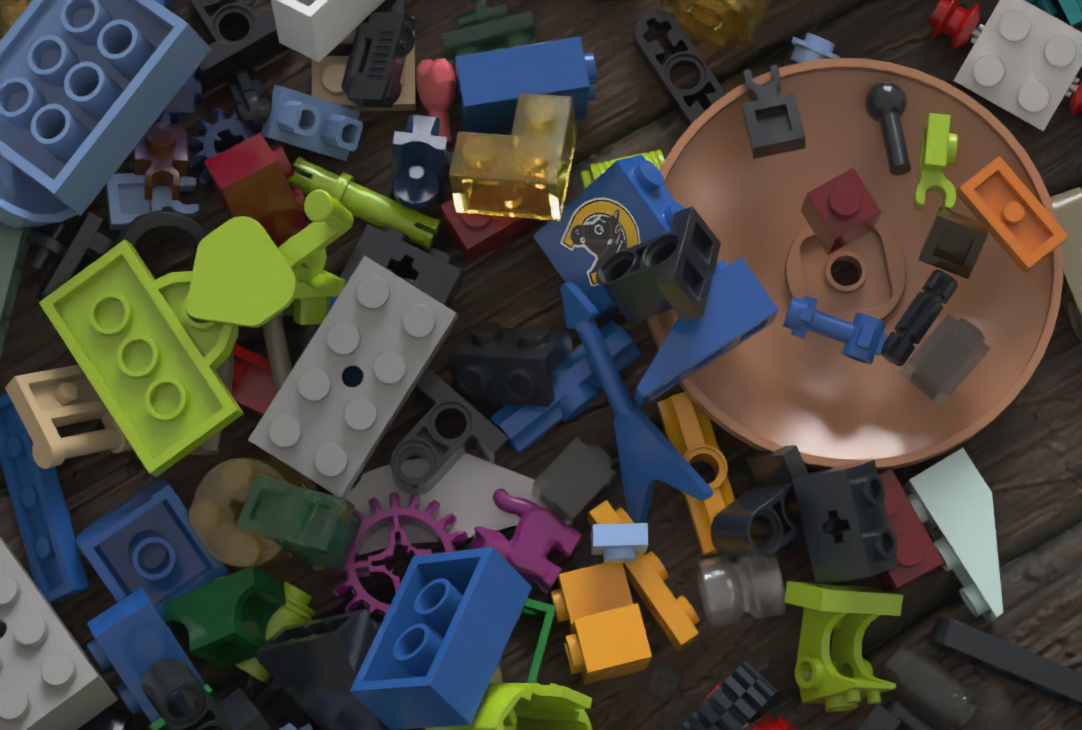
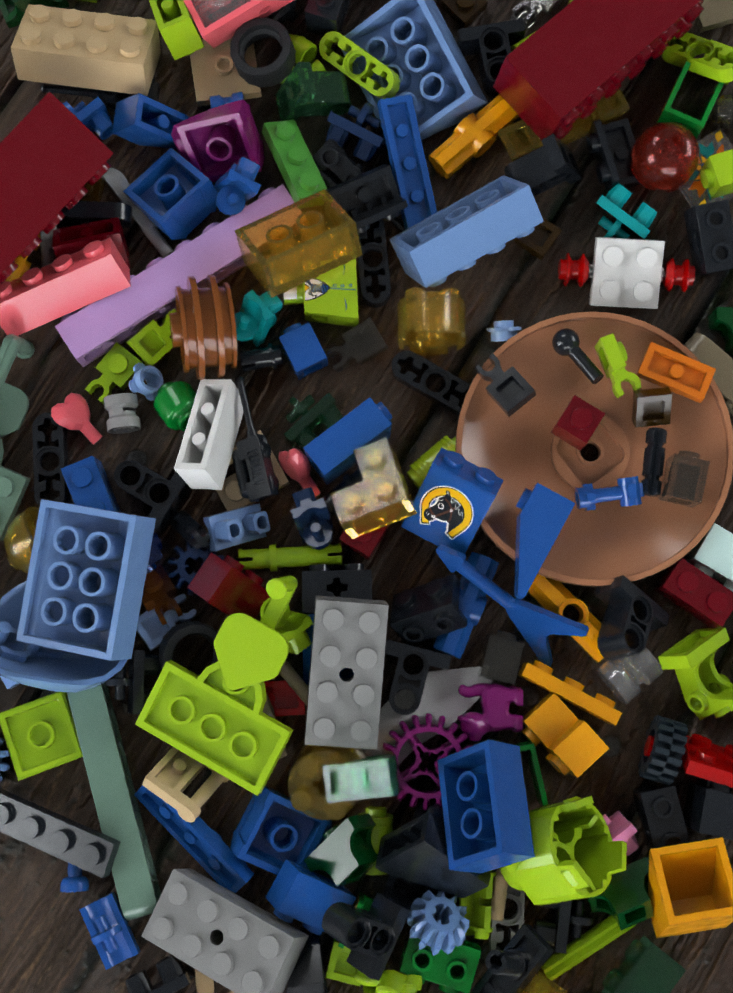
camera: 20 degrees left, 5 degrees up
(619, 541) = (551, 687): light blue plate -> none
(664, 271) = (497, 515): black tile -> none
(846, 522) = (676, 606): black brick -> none

